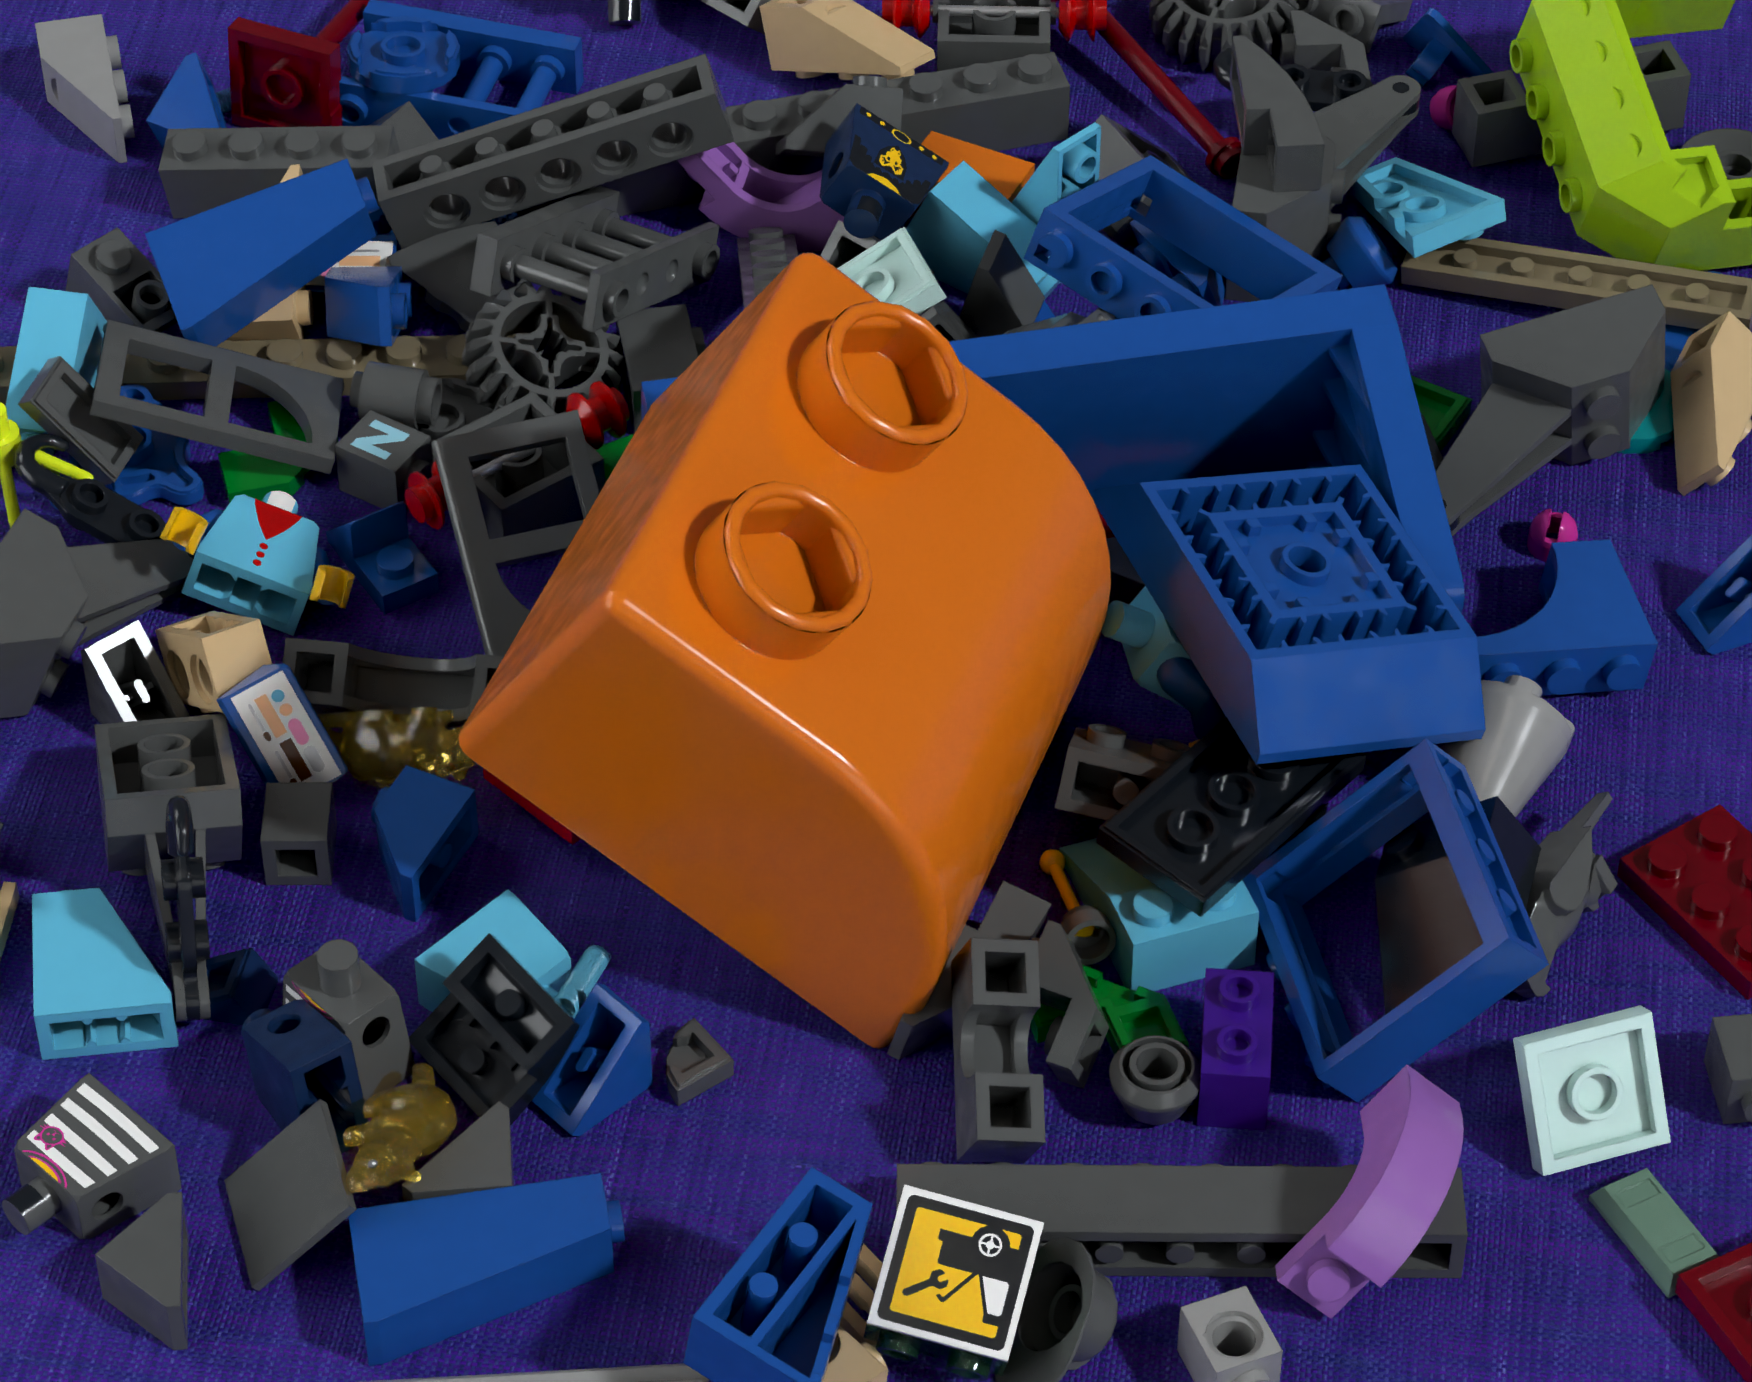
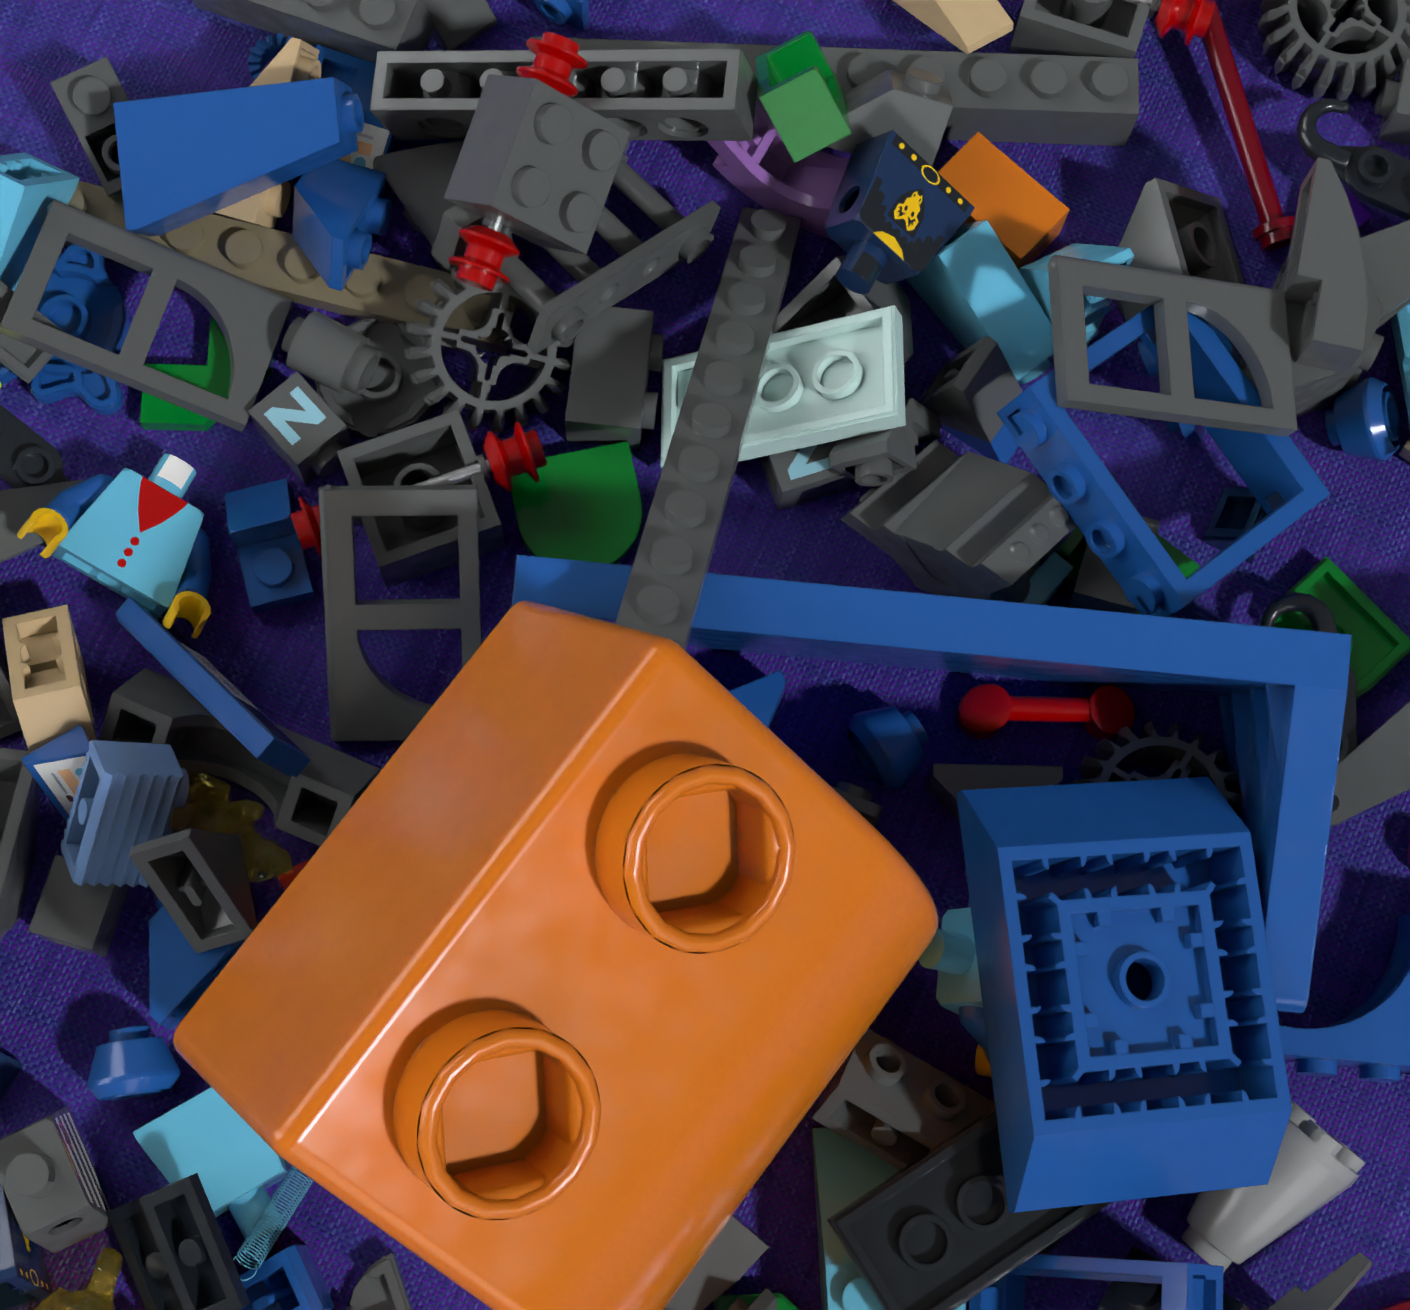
camera: 10 degrees right, 30 degrees up
(327, 715) = (121, 803): none -> medium blue brick
(380, 622) = (213, 689): none -> blue tile
(393, 932) = (132, 1065): none -> blue cone
(417, 742) = (201, 885): none -> dark grey slope
(552, 174) = (533, 164): none -> dark grey brick
(769, 106) = (802, 96): none -> green panel
(1080, 921) = (797, 1268): dark grey hinge -> none
(1222, 163) = (1246, 314): none -> dark grey window

